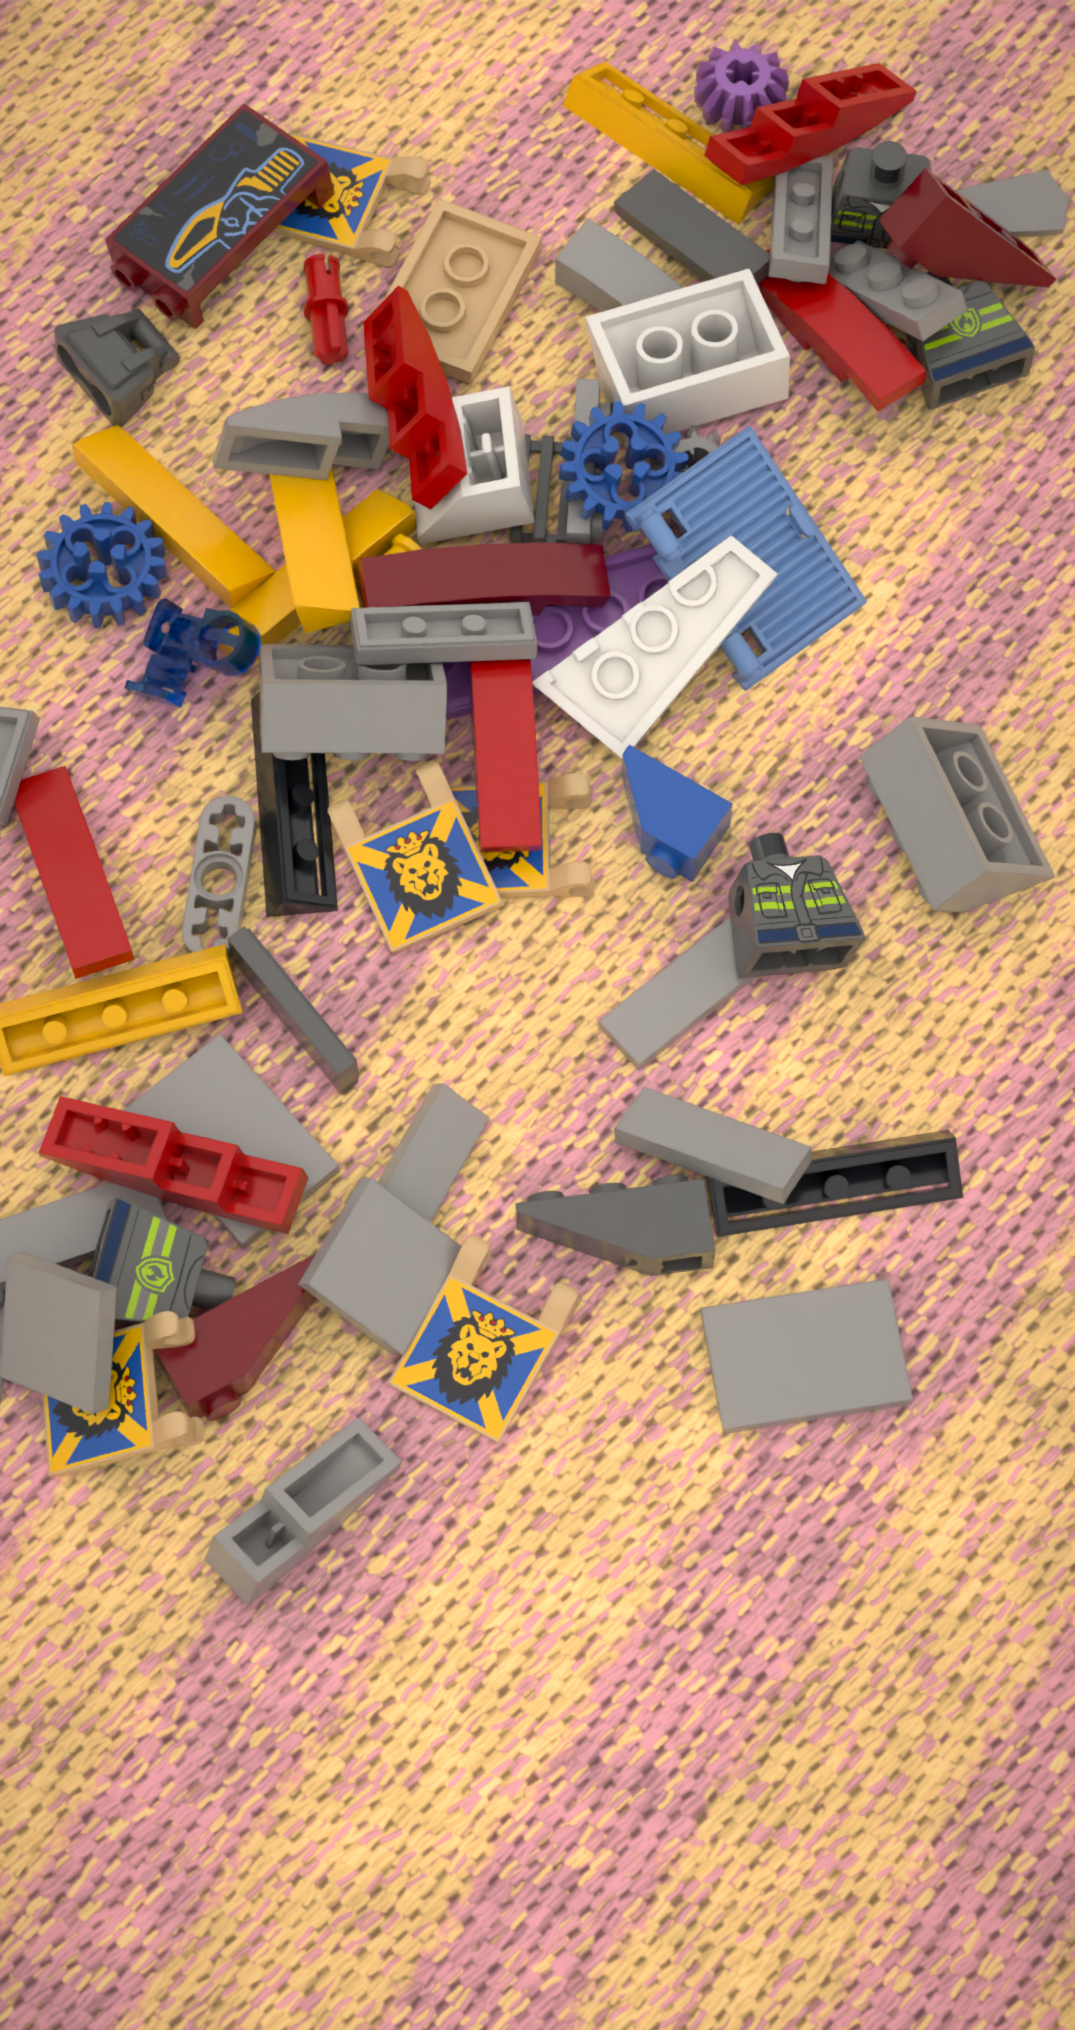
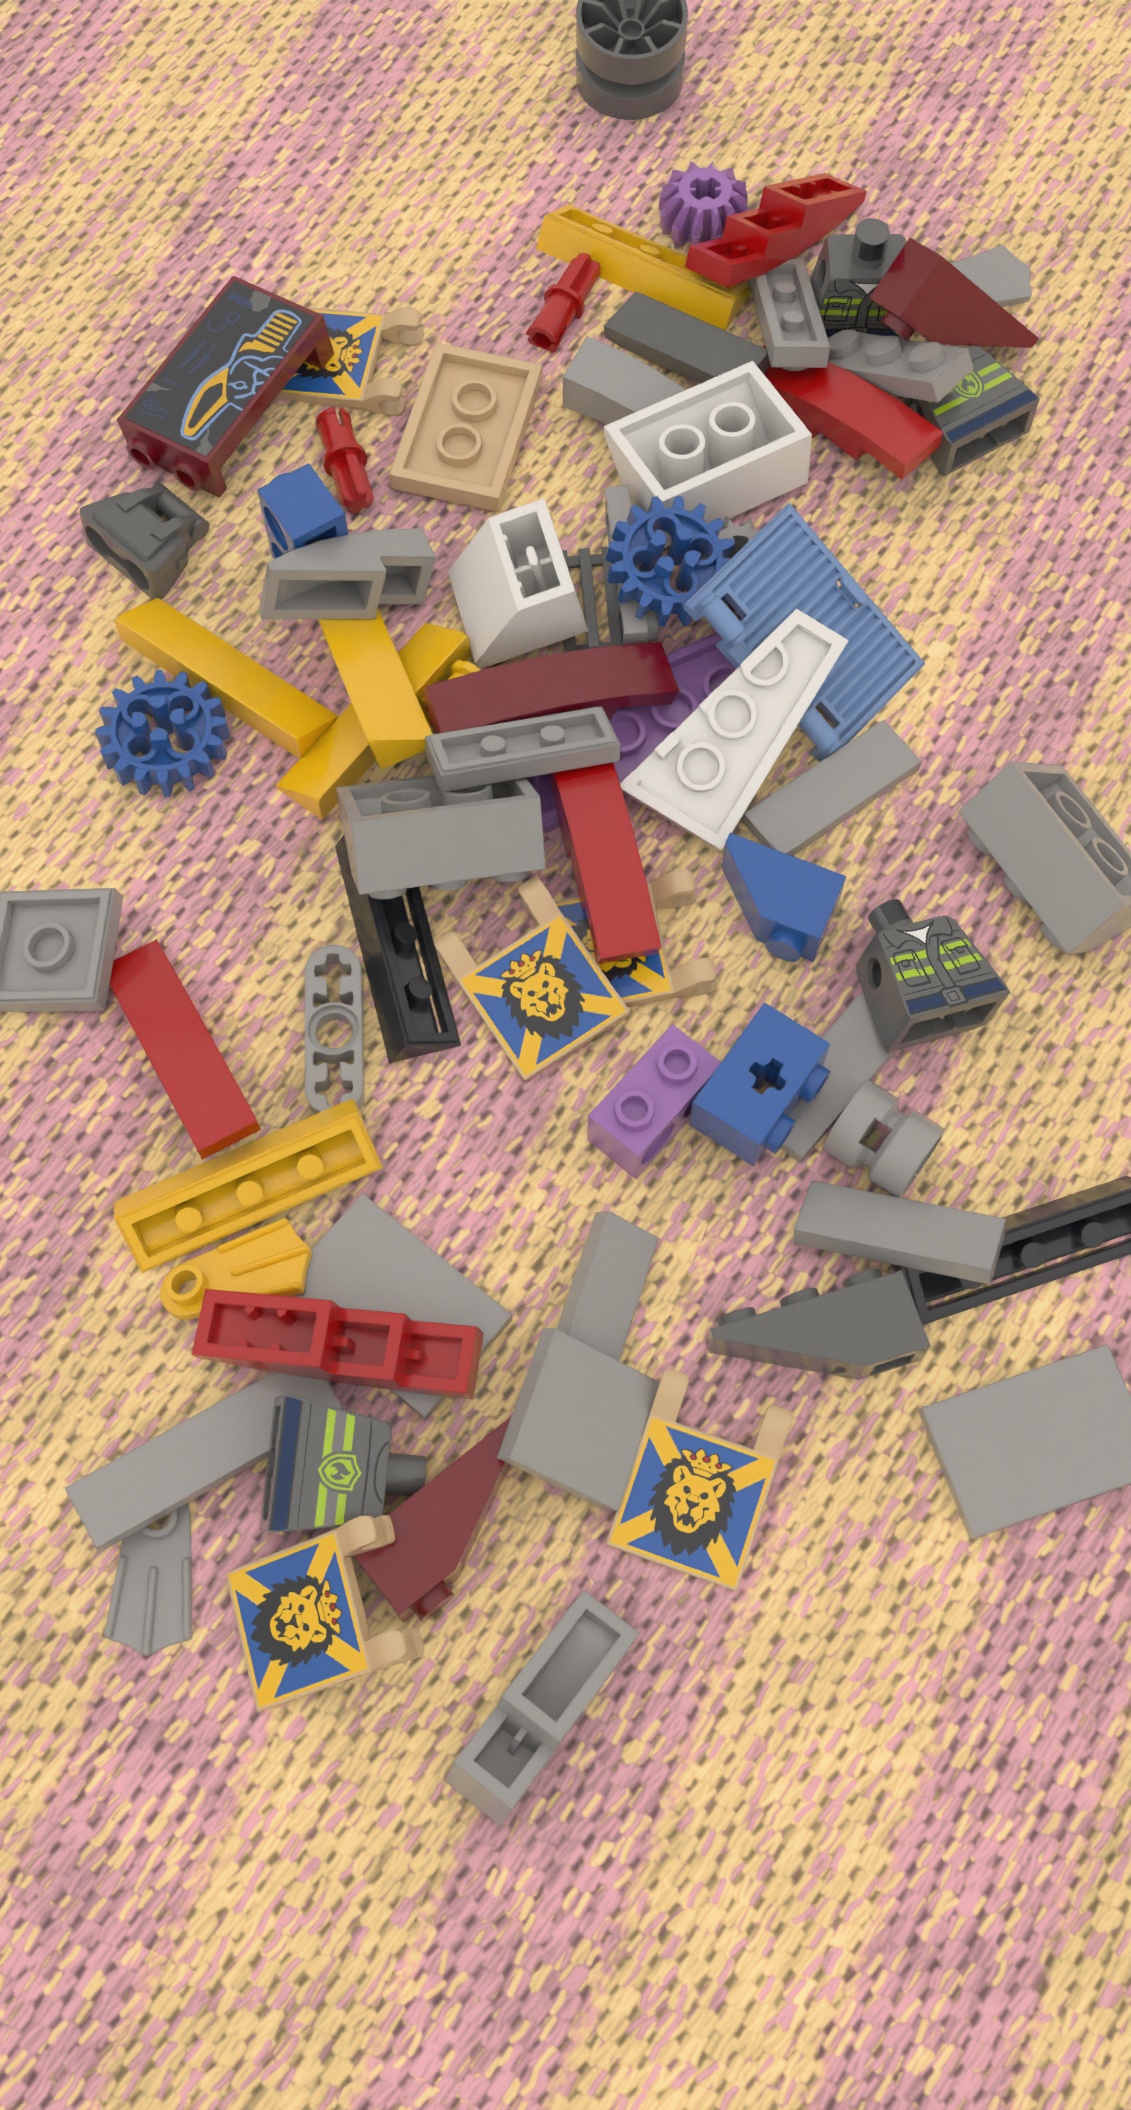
camera: 10 degrees left, 0 degrees up
(58, 1332) = (244, 1555): light grey tile -> none
(114, 1080) = (260, 1262): none -> yellow piece
(188, 641) = (266, 794): clear blue piece -> none
(268, 365) = (299, 511): none -> blue brick
(293, 1009) = (436, 1156): dark grey tile -> none
(413, 388) = (449, 518): red slope -> none
(507, 990) = (651, 1101): none -> medium lavender brick
(578, 171) = (564, 303): none -> red axle
(618, 958) = (770, 1051): none -> blue brick
(738, 1065) = (903, 1150): none -> light grey wheel
(745, 717) = (832, 790): none -> light grey tile

